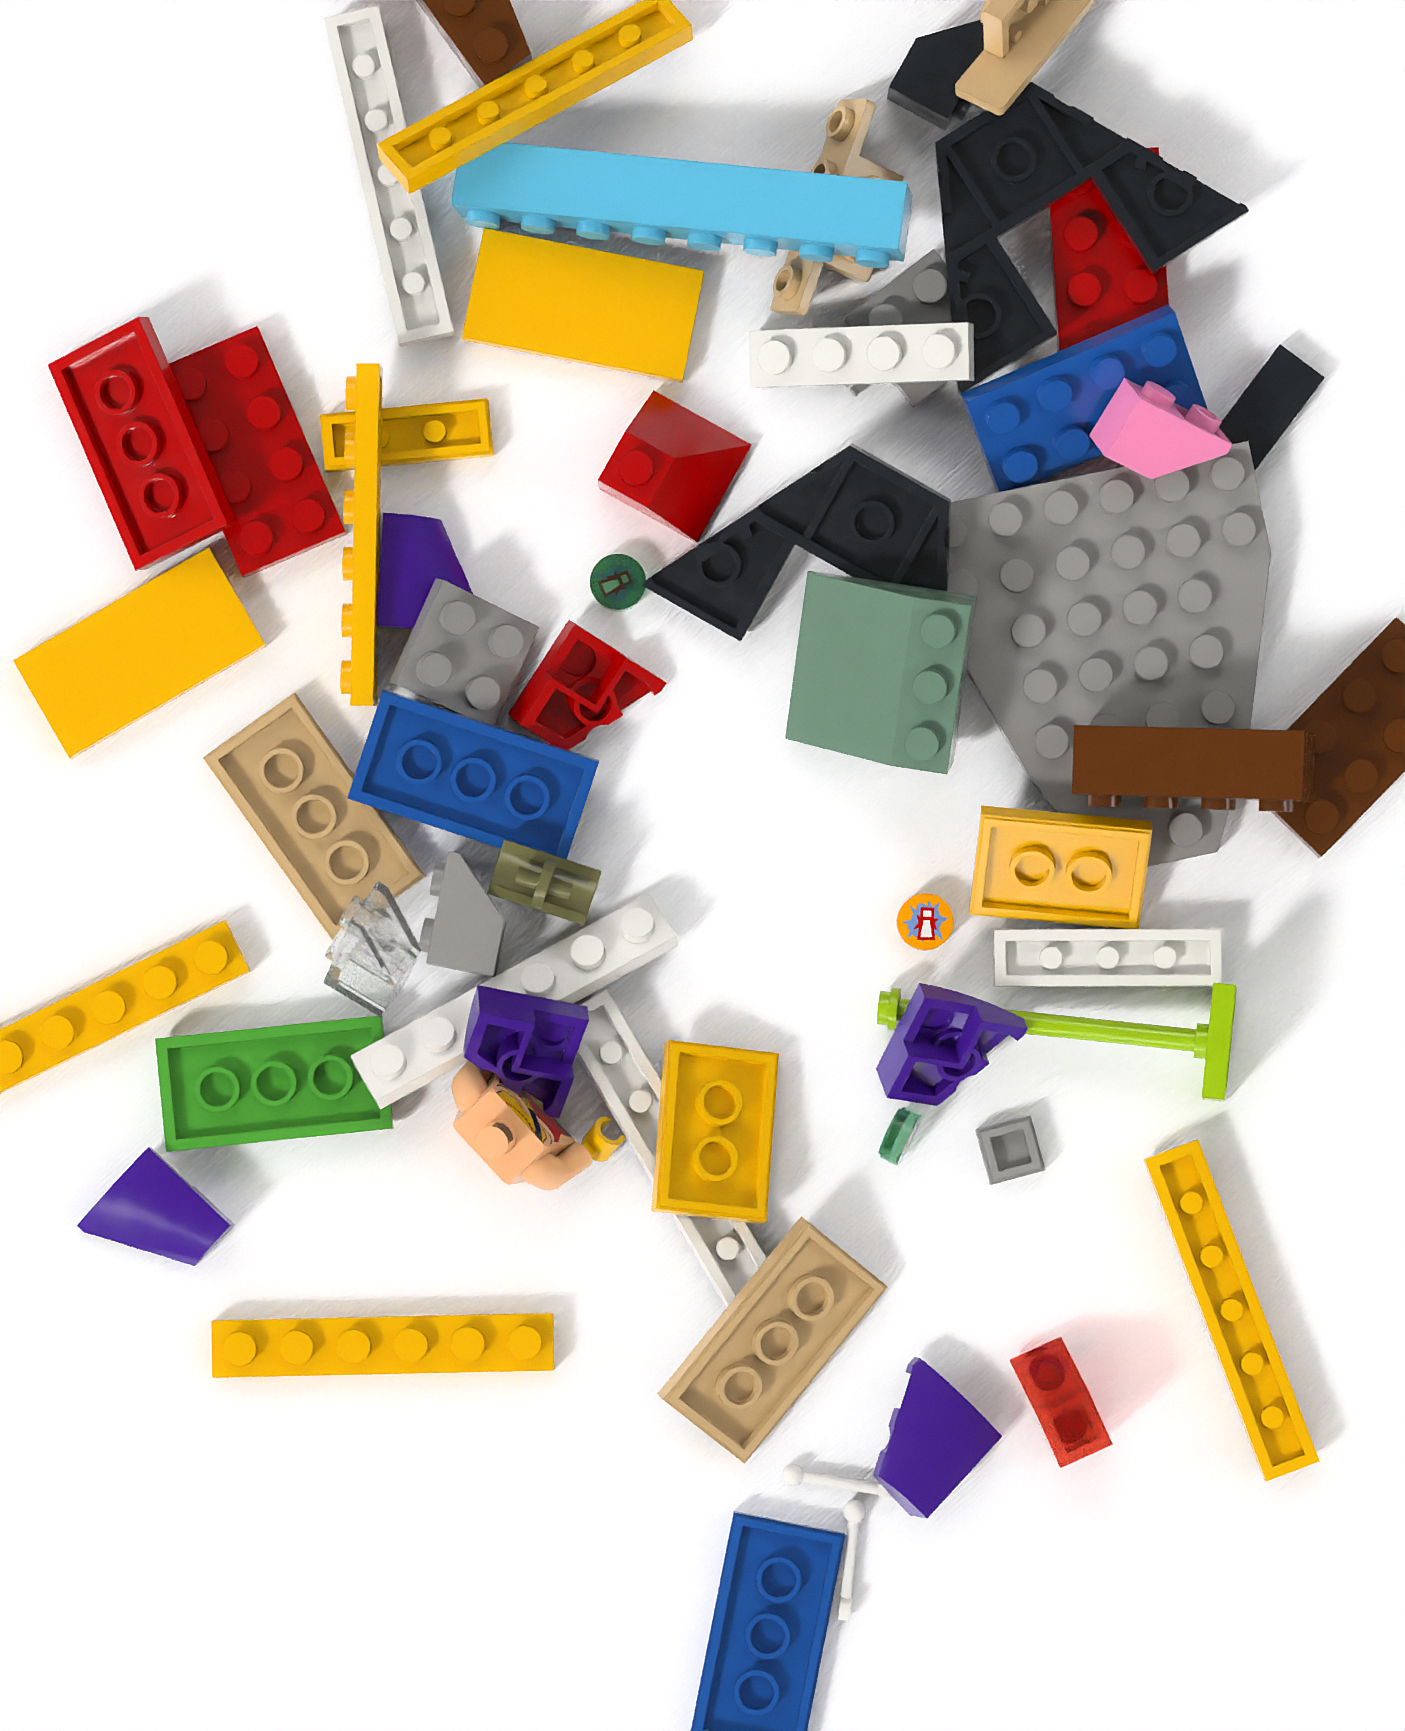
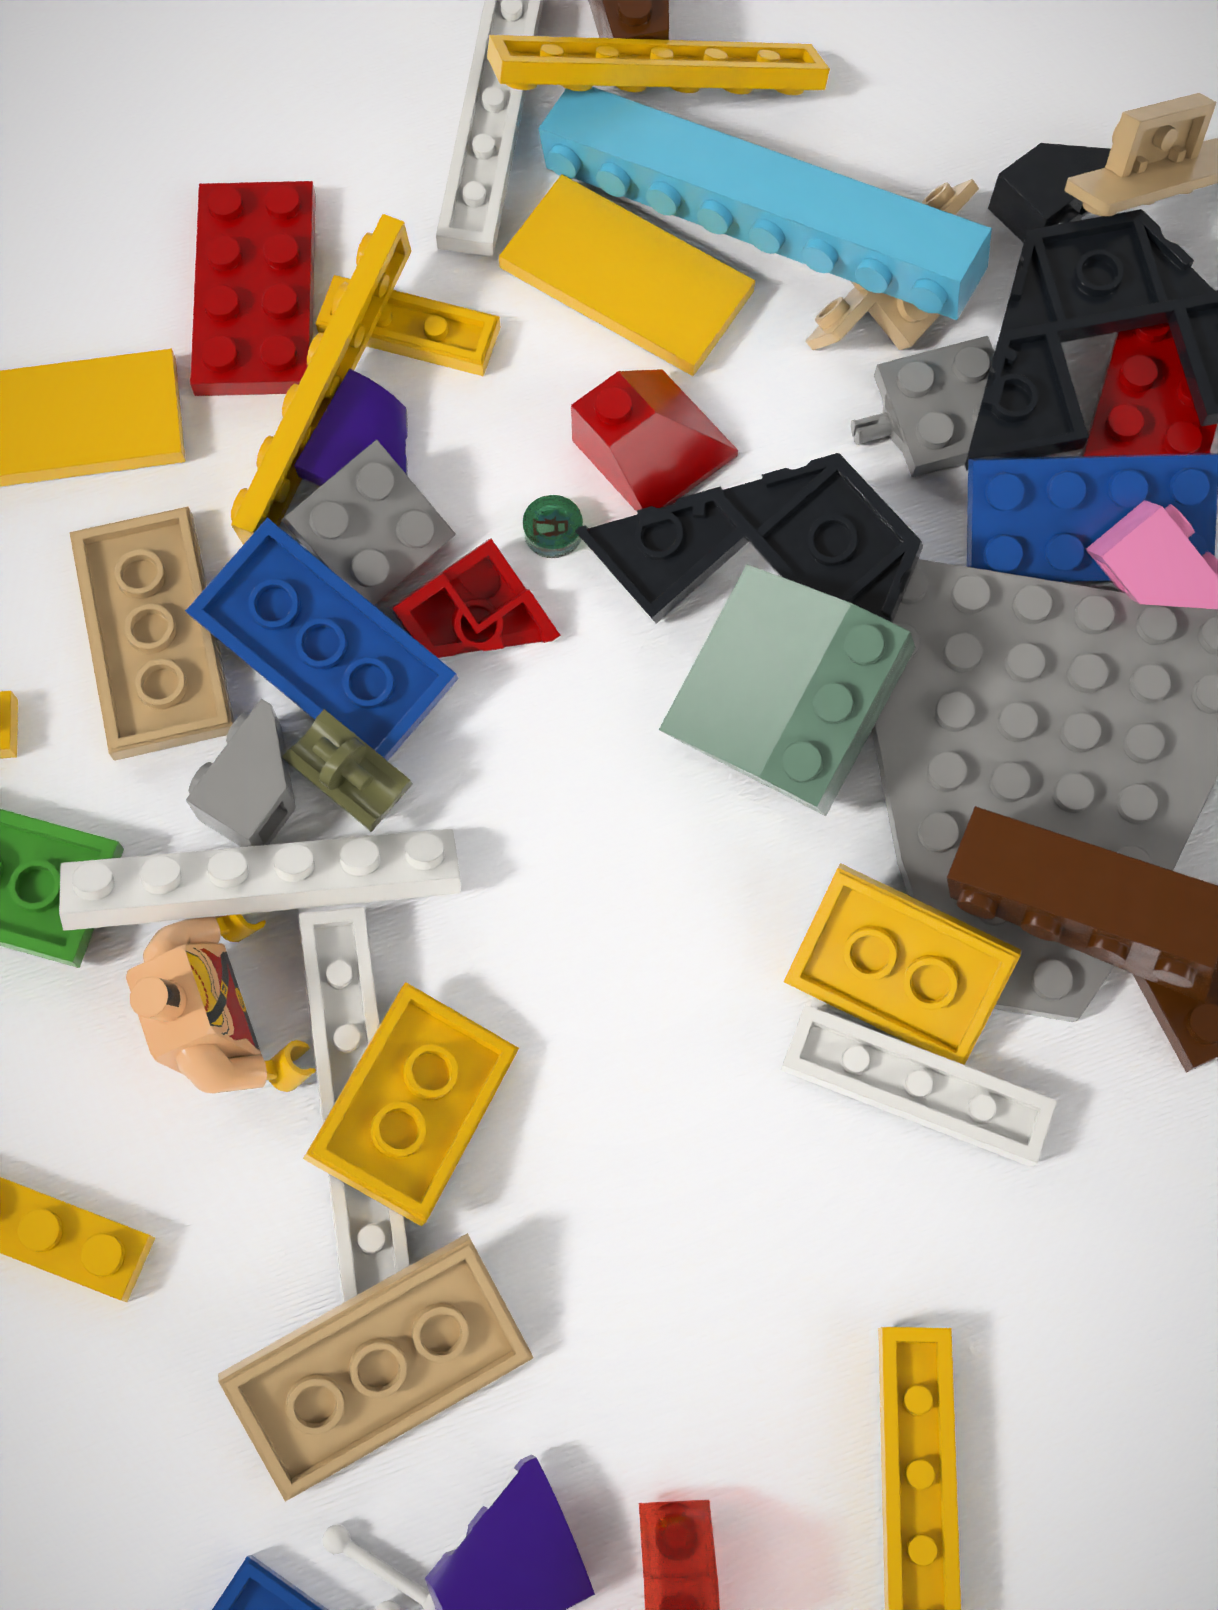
camera: 20 degrees right, 15 degrees down
(142, 443) = (153, 234): red plate -> none
(373, 952) = (137, 767): clear slope -> none
(526, 1042) = (247, 918): dark purple slope -> none
(861, 355) = (883, 396): white plate -> none
(899, 1135) = (614, 1189): clear green tile -> none
(925, 922) = (732, 972): tile -> none
(942, 1043) = (701, 1103): dark purple slope -> none
(1010, 1150) = (731, 1257): light grey tile -> none
(1206, 1041) = (1002, 1216): lime tile -> none

